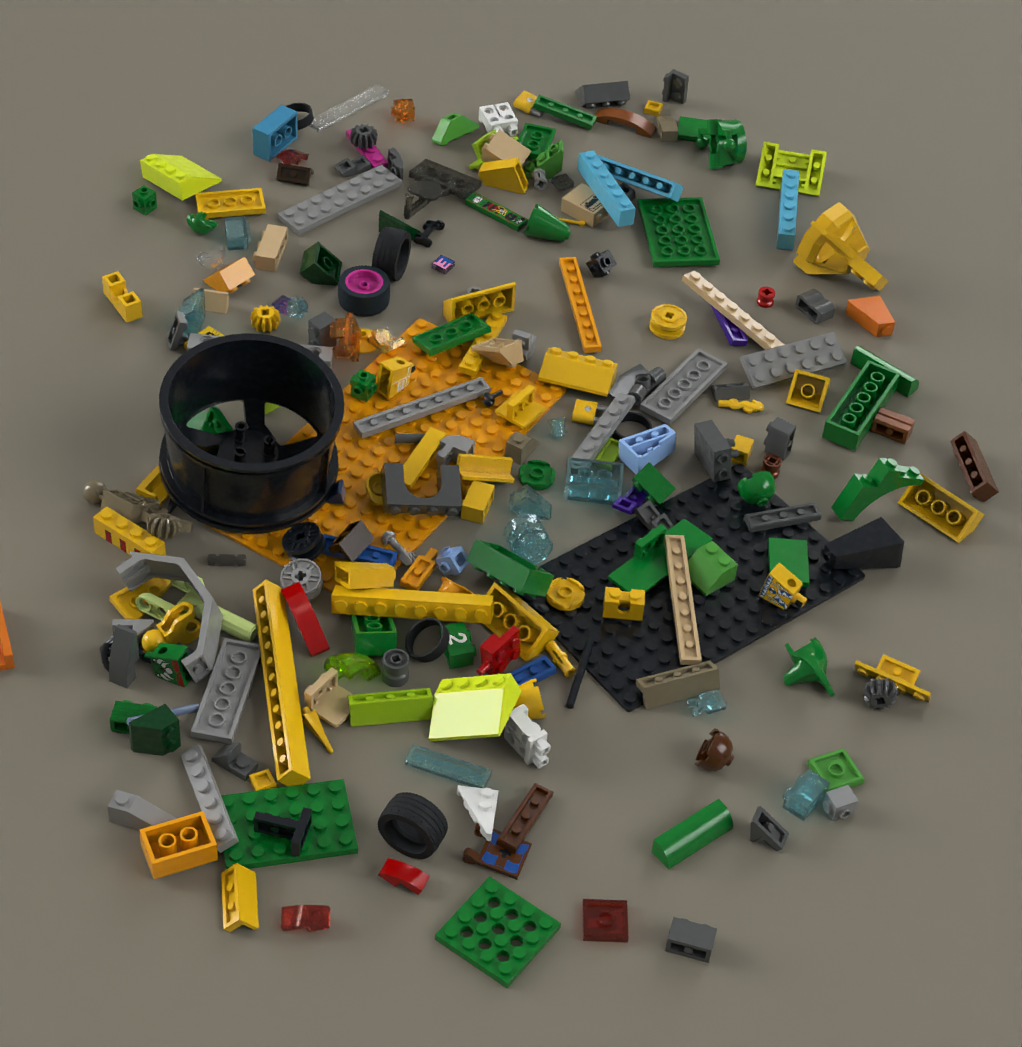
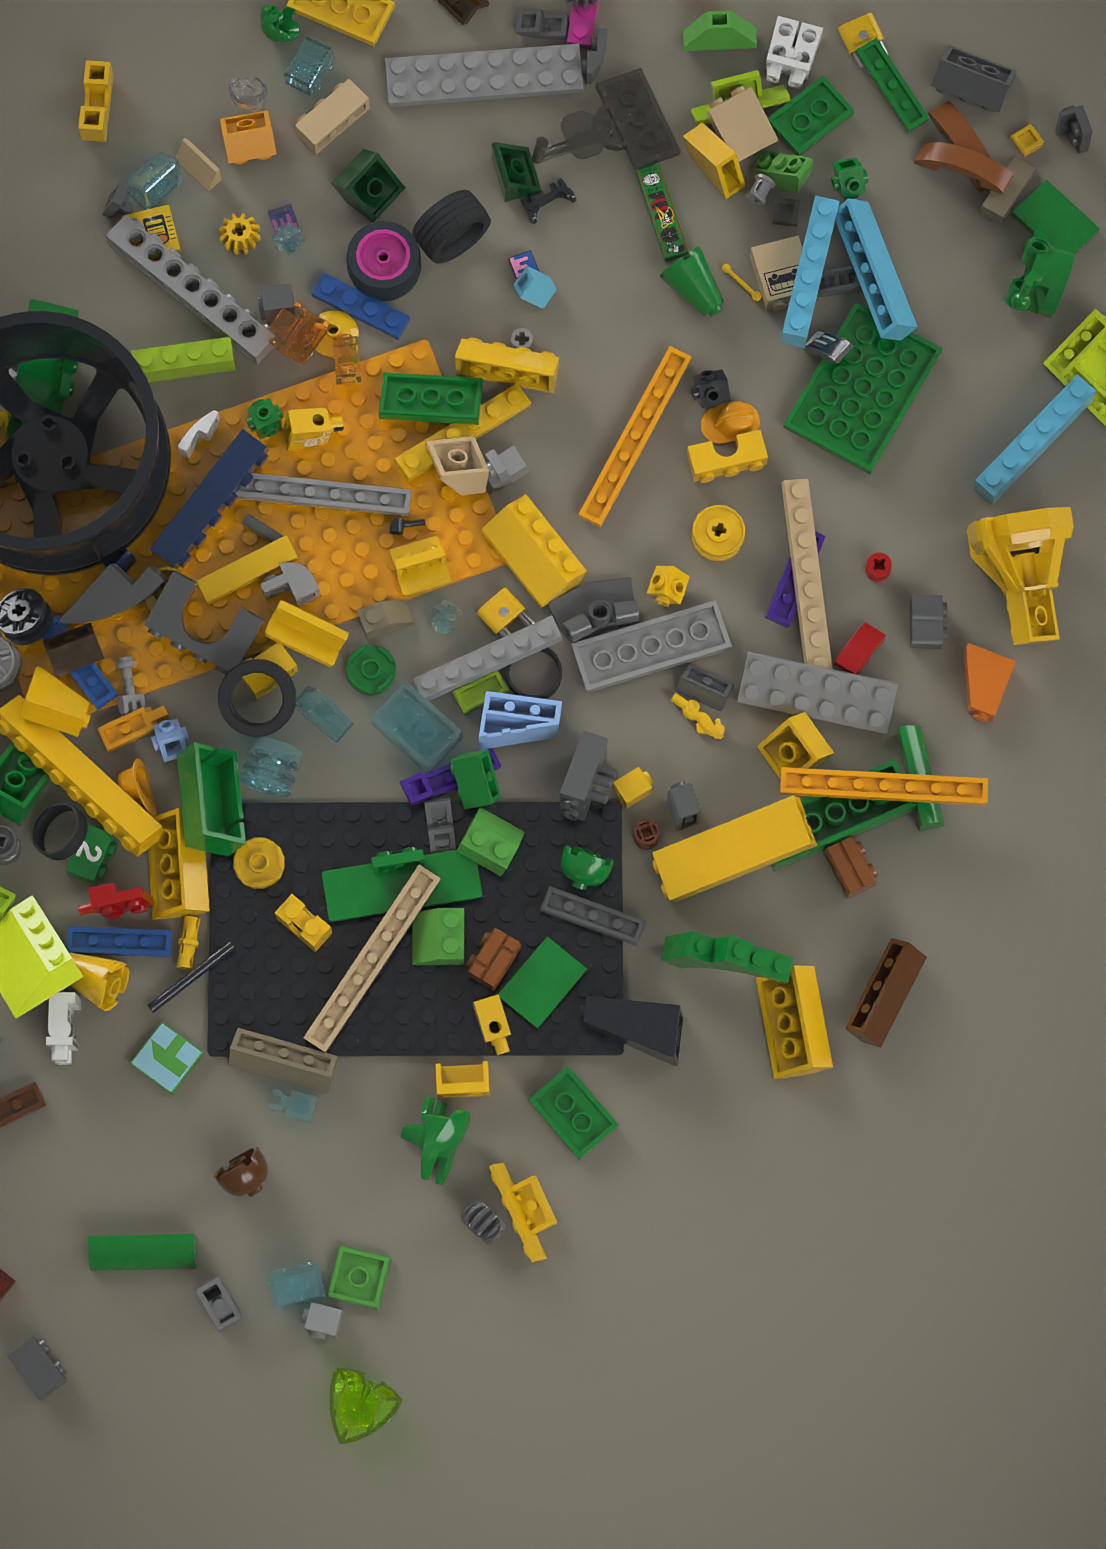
camera: 40 degrees right, 30 degrees up
(353, 501) = (114, 594): none -> dark grey slope
(368, 430) = (210, 499): none -> dark blue brick
(376, 320) = (360, 306): none -> blue plate
(459, 266) = (535, 287): none -> medium azure panel
(493, 485) = (228, 710): none -> black tyre
(580, 147) = (849, 178): none -> green brick
(605, 725) = (167, 1058): none -> tile
(623, 276) = (728, 420): none -> light orange piece
(633, 119) = (967, 162): none -> dark orange slope
(646, 218) = (828, 346): none -> slope
(646, 283) = (708, 464): none -> yellow arch
(666, 353) = (668, 585): none -> yellow brick
(693, 509) = (490, 841): none -> bright green slope
(750, 563) = (493, 959): none -> dark orange brick
(794, 331) = (859, 649): none -> red slope
(795, 635) = (462, 1080): none -> yellow panel
(829, 438) = (733, 849): none -> yellow brick
(870, 616) = (573, 1113): none -> green plate
(876, 370) = (884, 786): none -> light orange plate
(908, 834) = (359, 1405): none -> clear neon green brick

